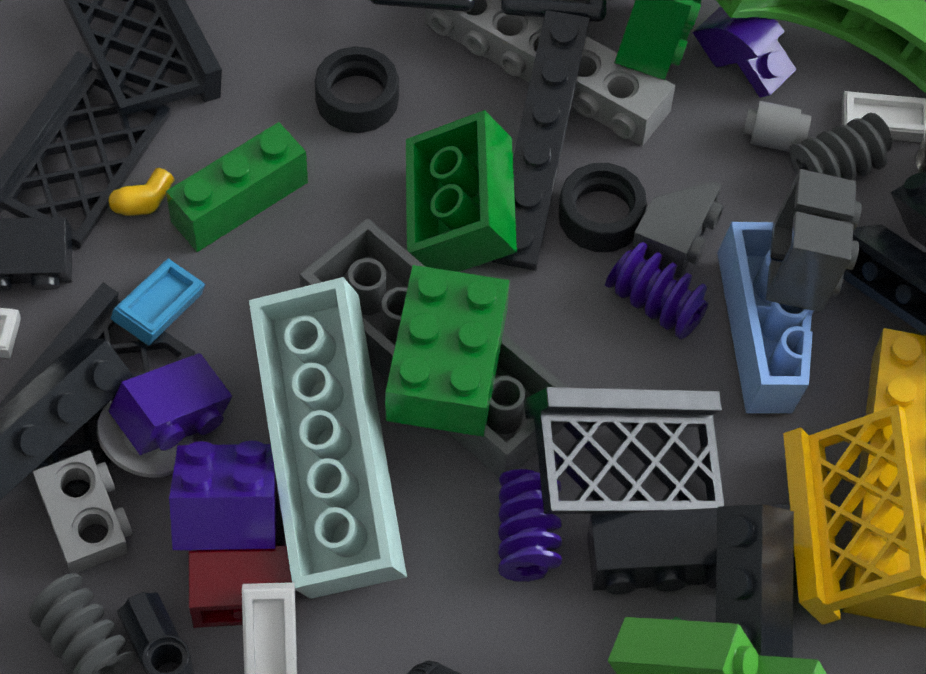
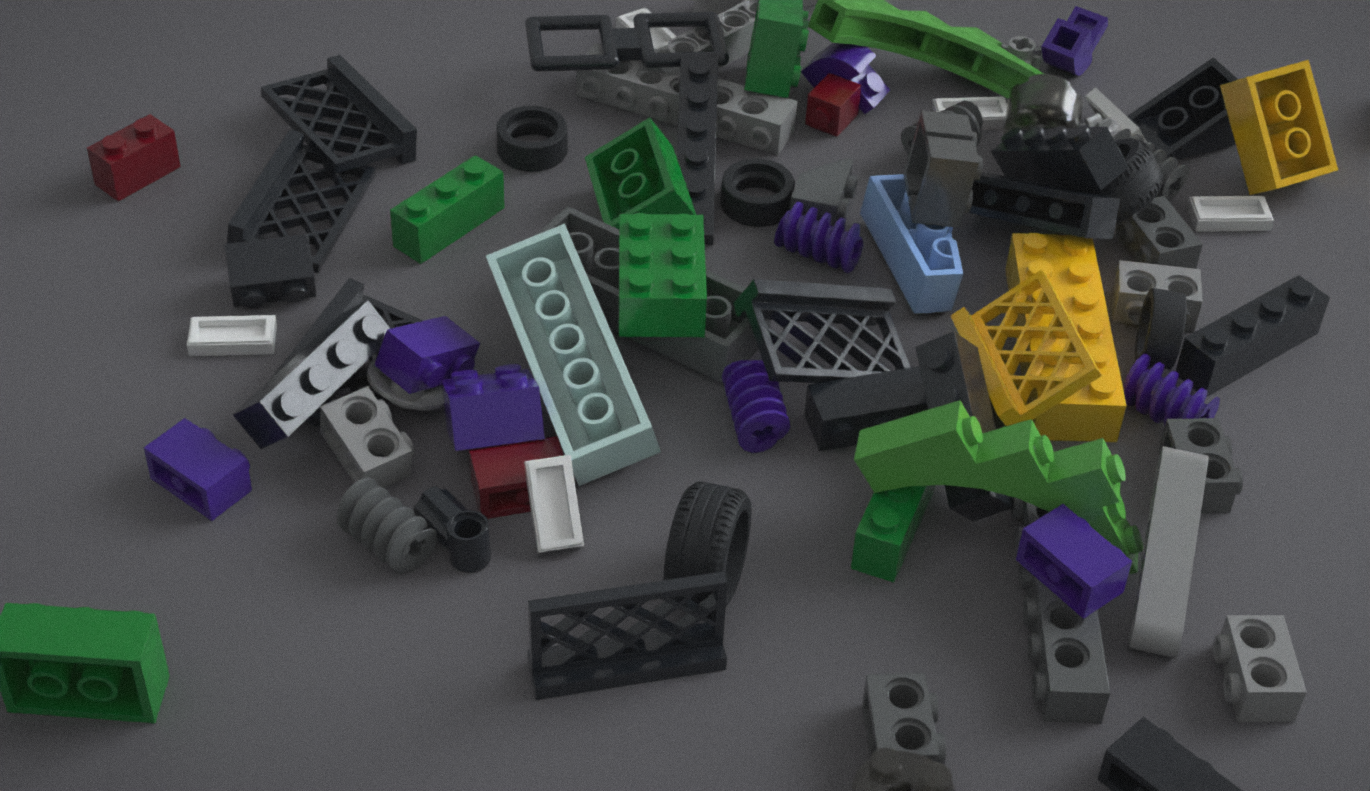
camera: 10 degrees left, 15 degrees down
(141, 198) = (364, 230): yellow arm -> none
(157, 301) = (399, 292): dark azure tile -> none
(720, 87) = (833, 104): none -> dark red brick
(776, 126) = (884, 124): light grey brick -> none

